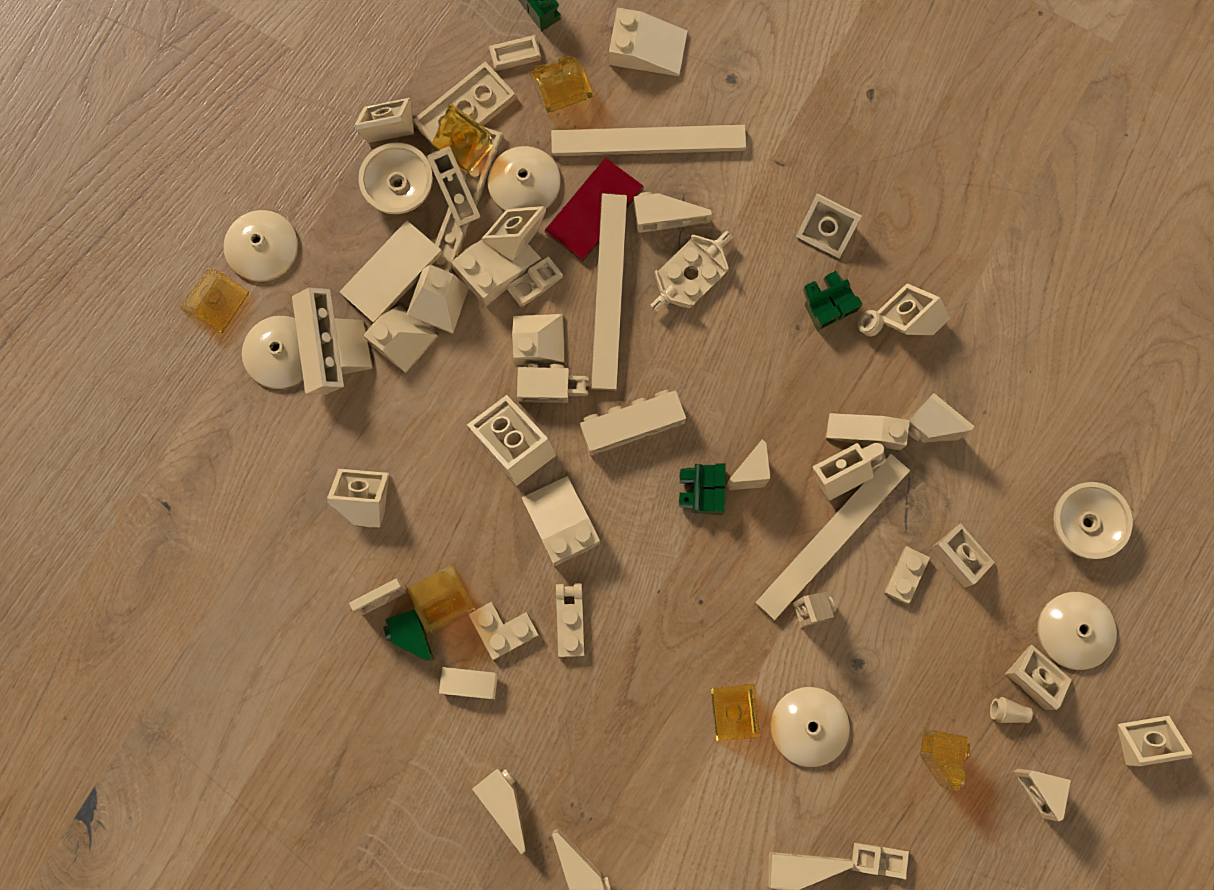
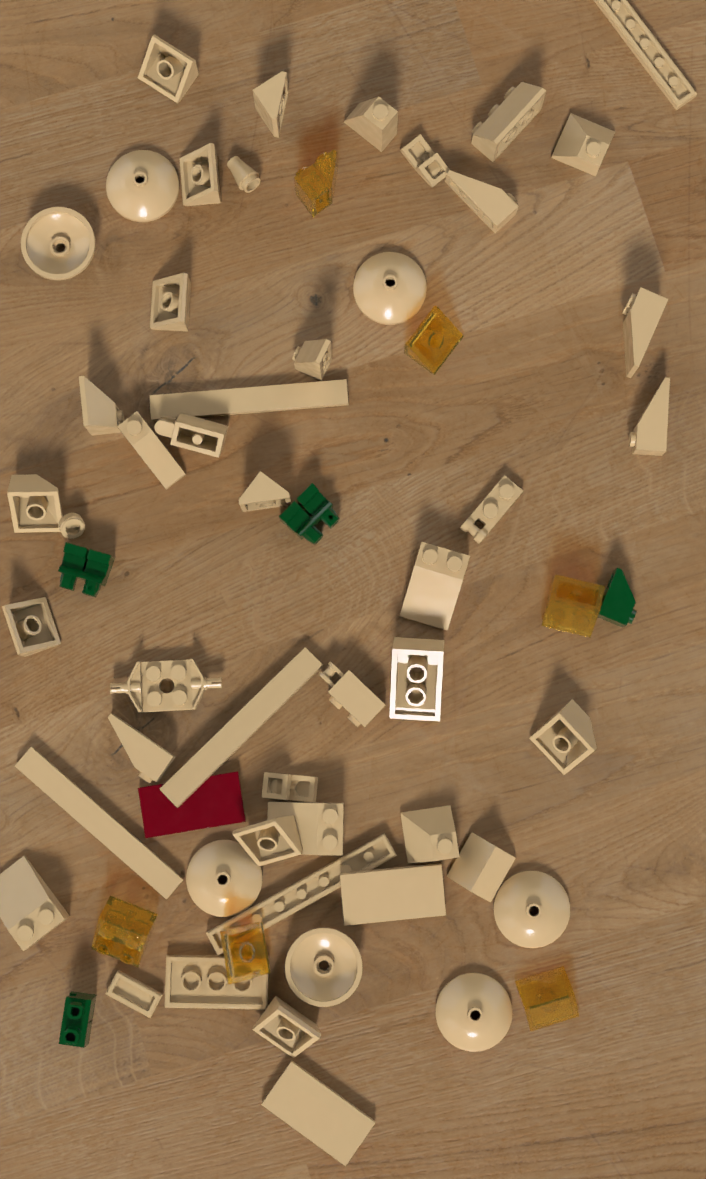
camera: 135 degrees left, 5 degrees up
(313, 86) = (318, 1113): none -> tan tile
(317, 341) = (498, 884): tan brick -> none
(378, 597) = (617, 645): tan tile -> none
(438, 298) = (377, 838): tan slope -> none
(453, 186) = (284, 920): tan slope -> none
(468, 683) = (604, 529): tan slope -> none
(501, 637) = (551, 541): tan plate -> none
(538, 339) = (327, 739): tan slope -> none
(632, 422) = (316, 609): tan brick -> none
(906, 575) = (223, 327): tan plate -> none
(950, 851) = (374, 122): none -> tan slope

